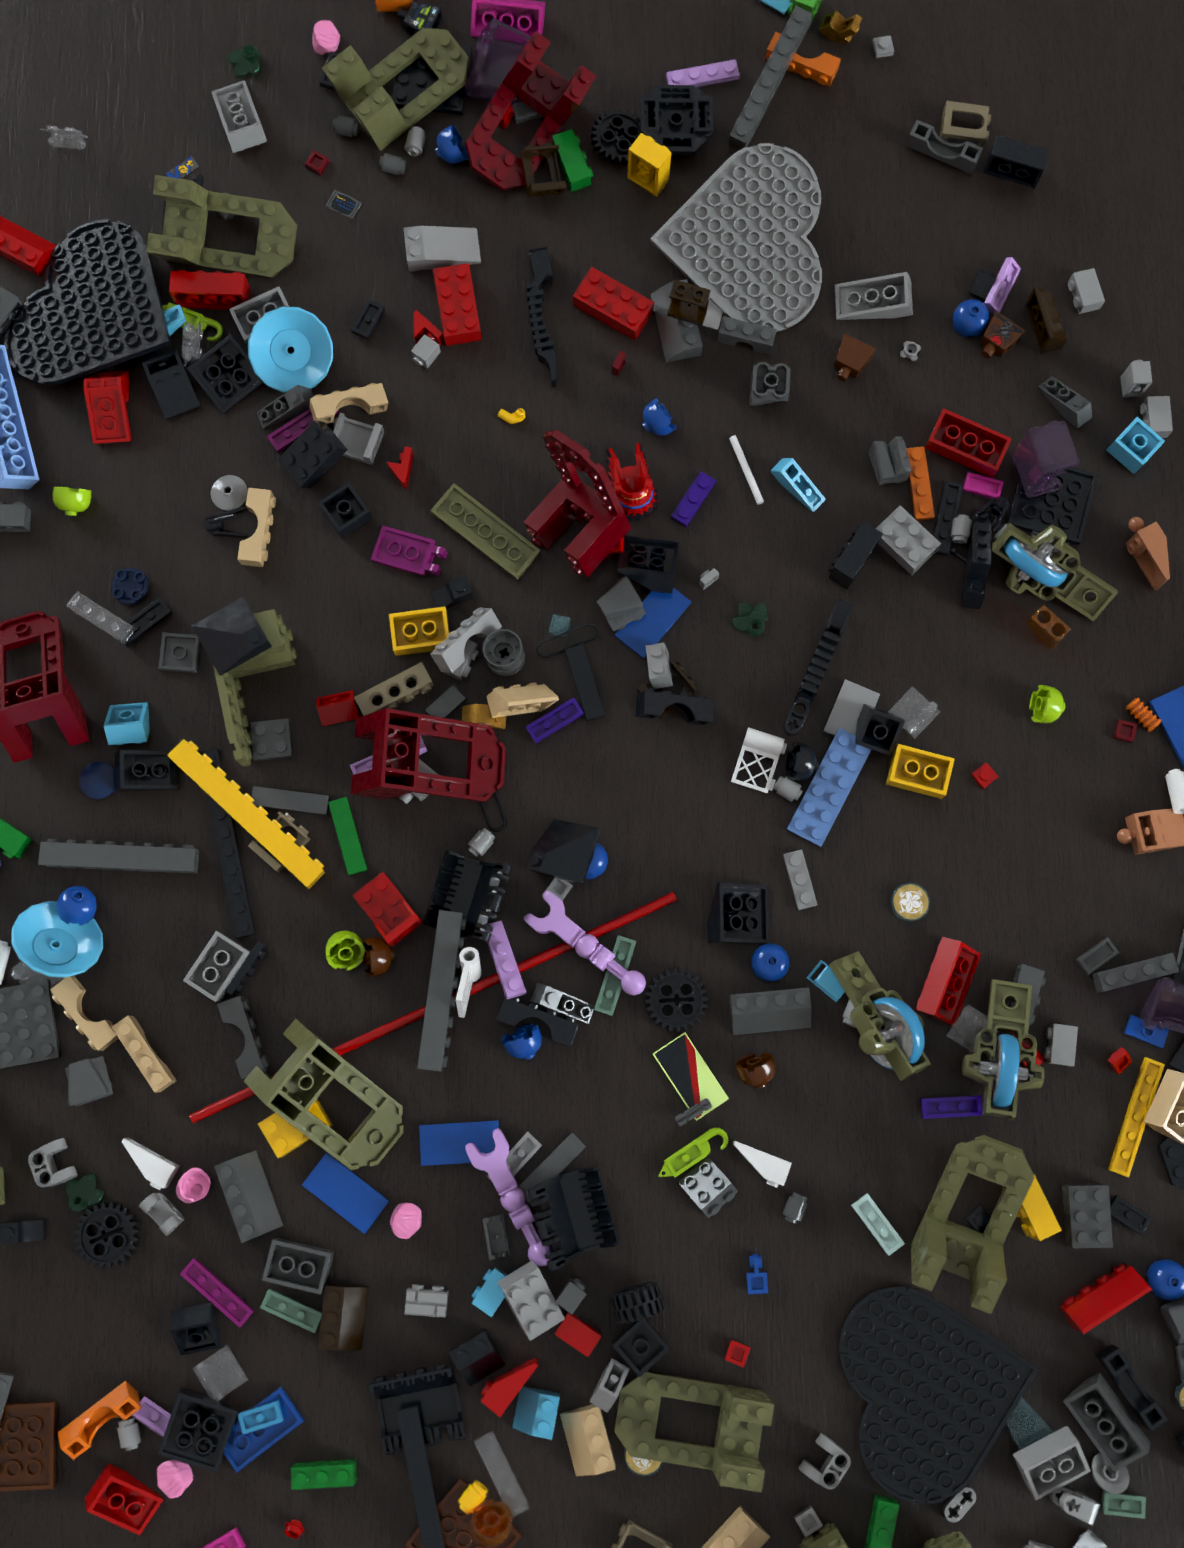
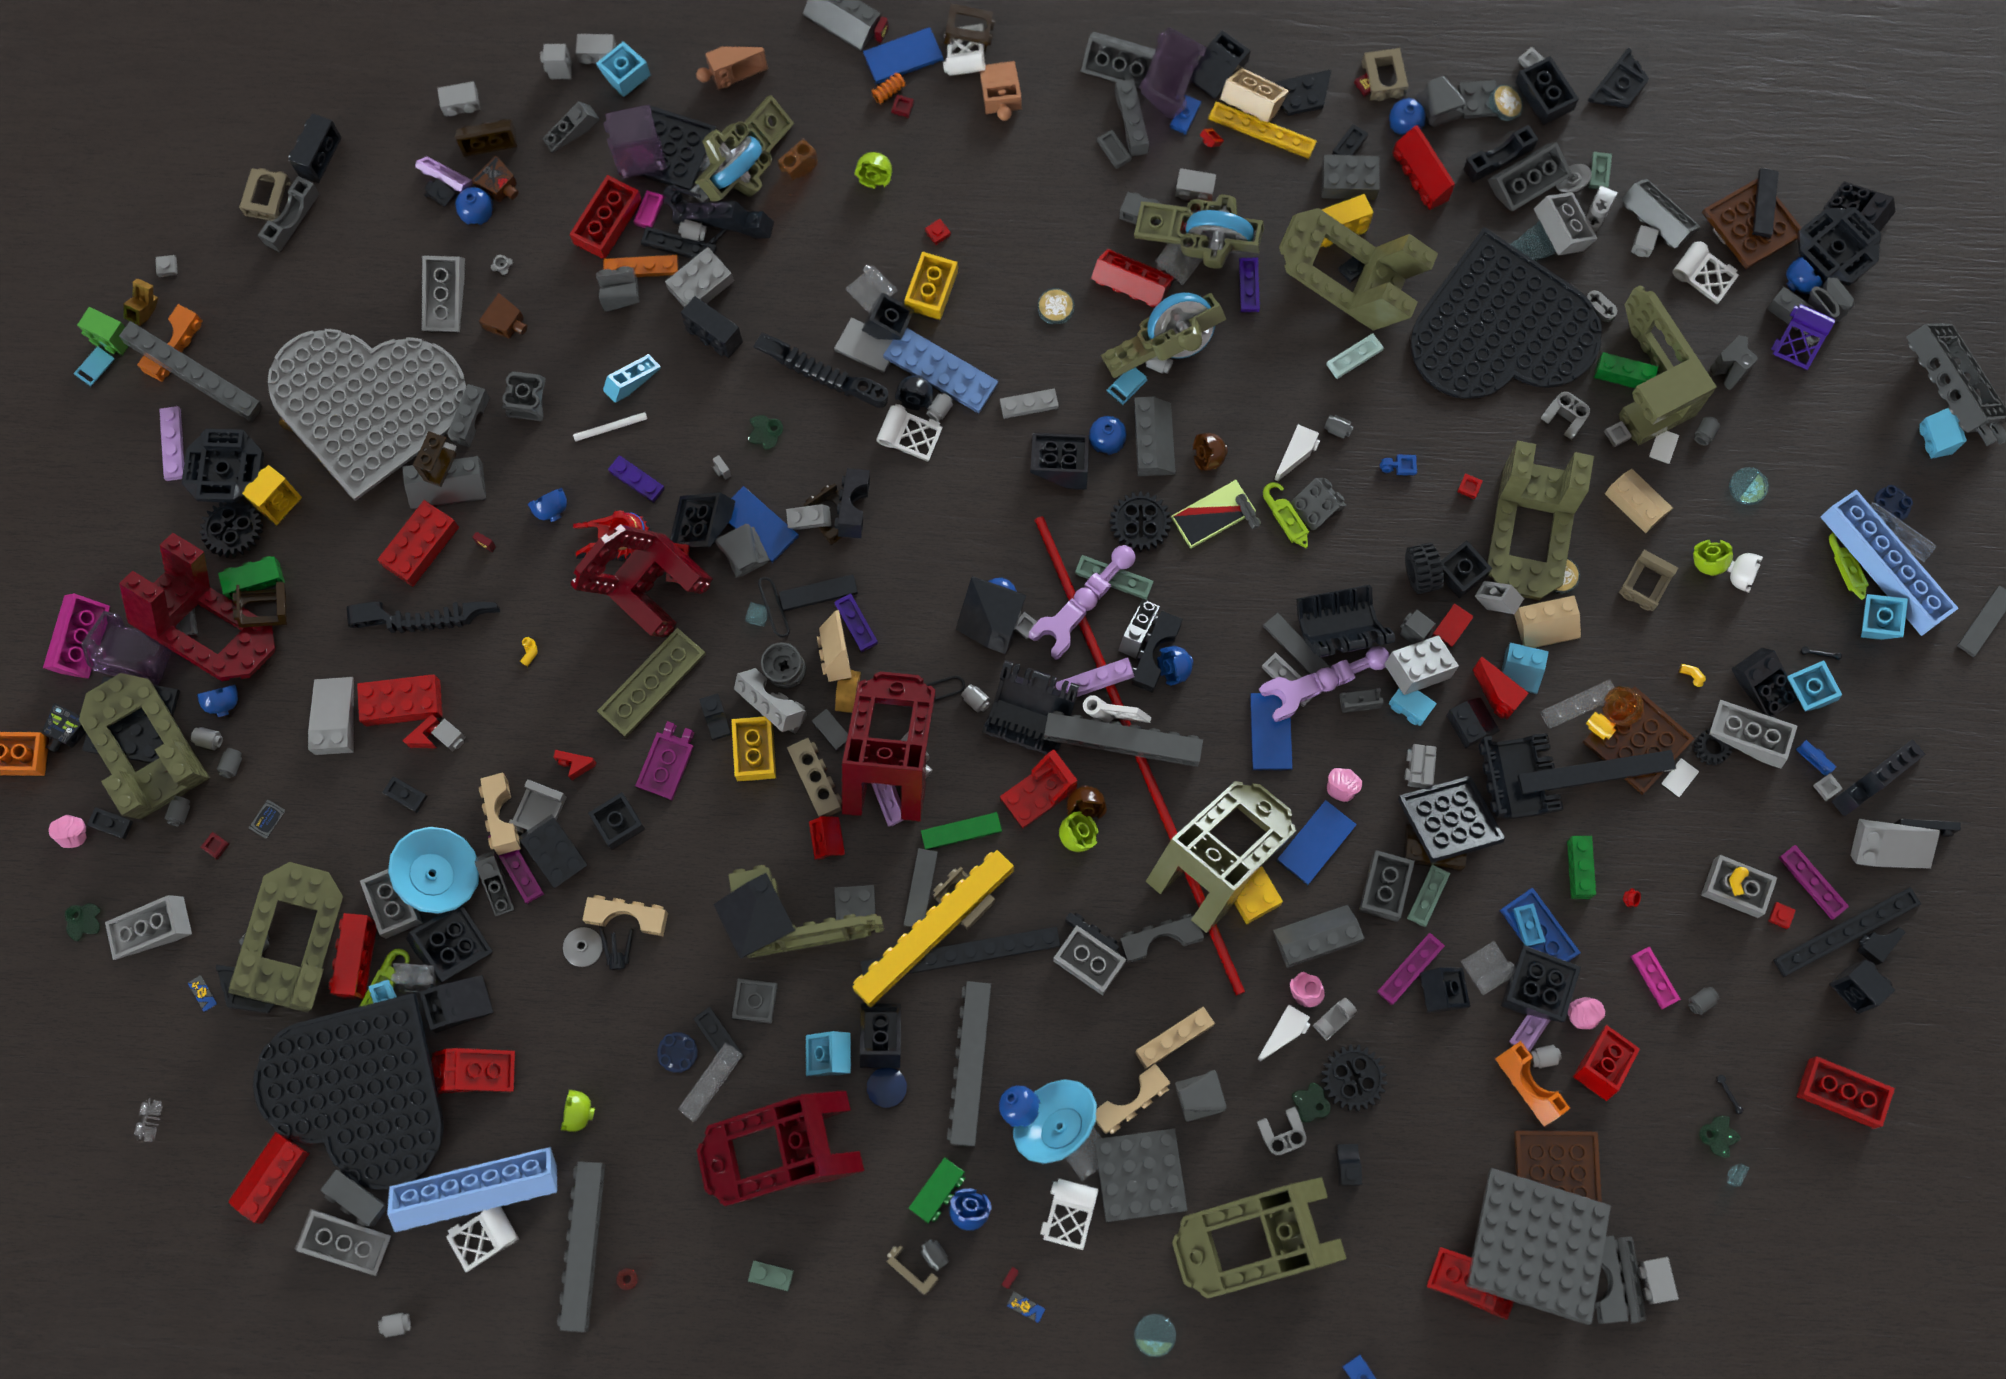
camera: 85 degrees left, 5 degrees down
(366, 1333) = (1451, 819): none -> plate

